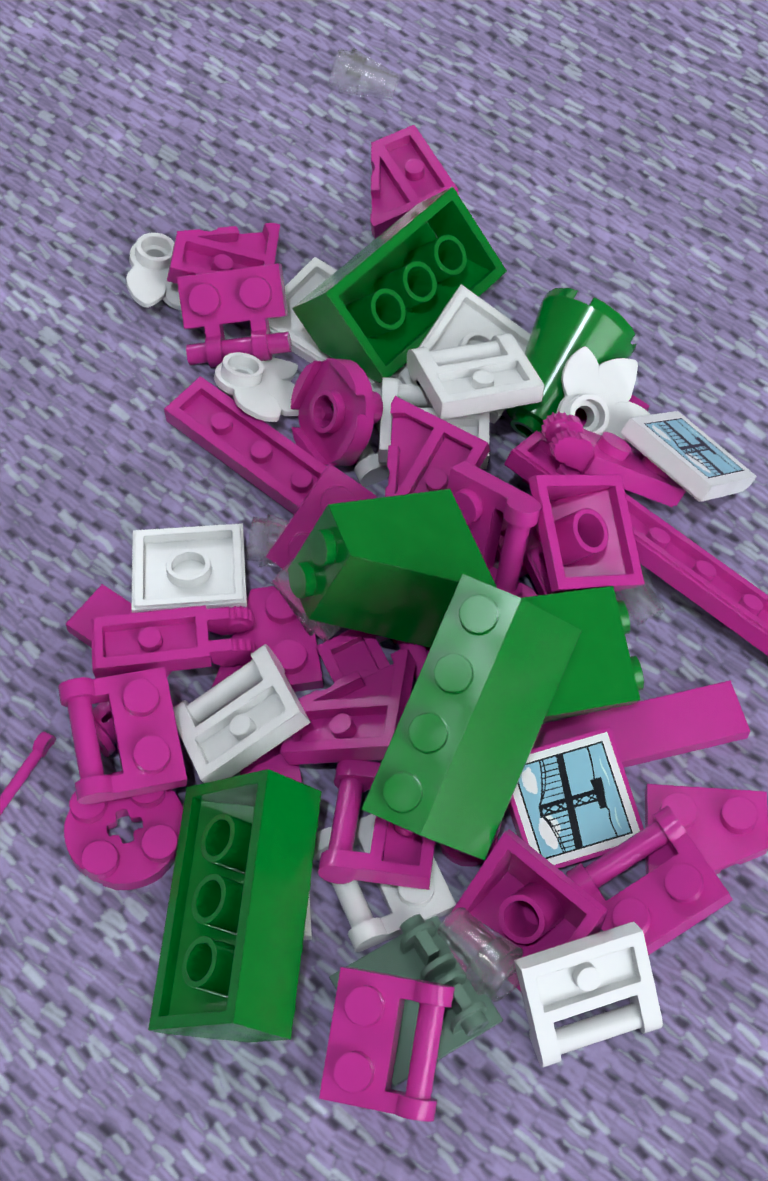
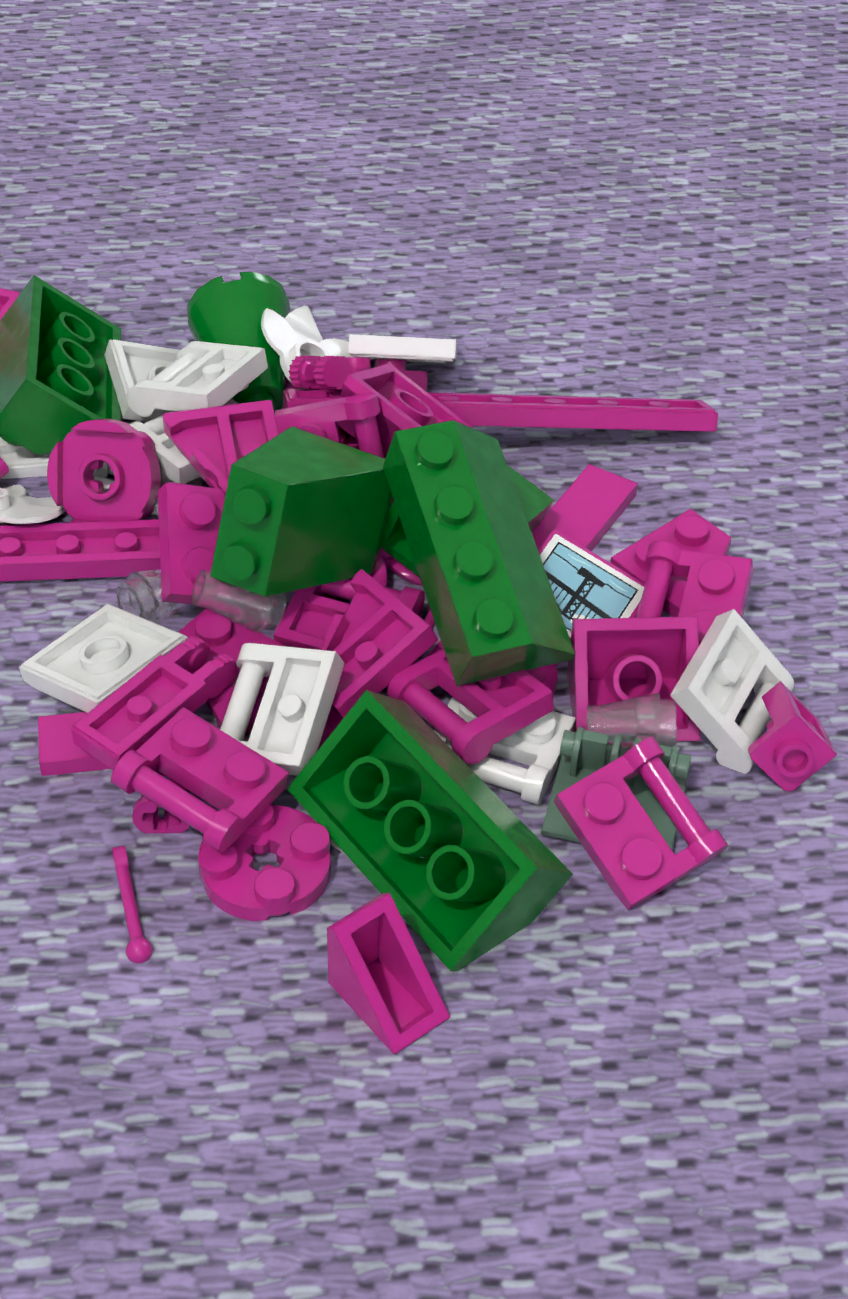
camera: 45 degrees left, 15 degrees down
(89, 998) = (383, 974): none -> dark pink slope
(598, 1076) = (794, 740): none -> dark pink bracket

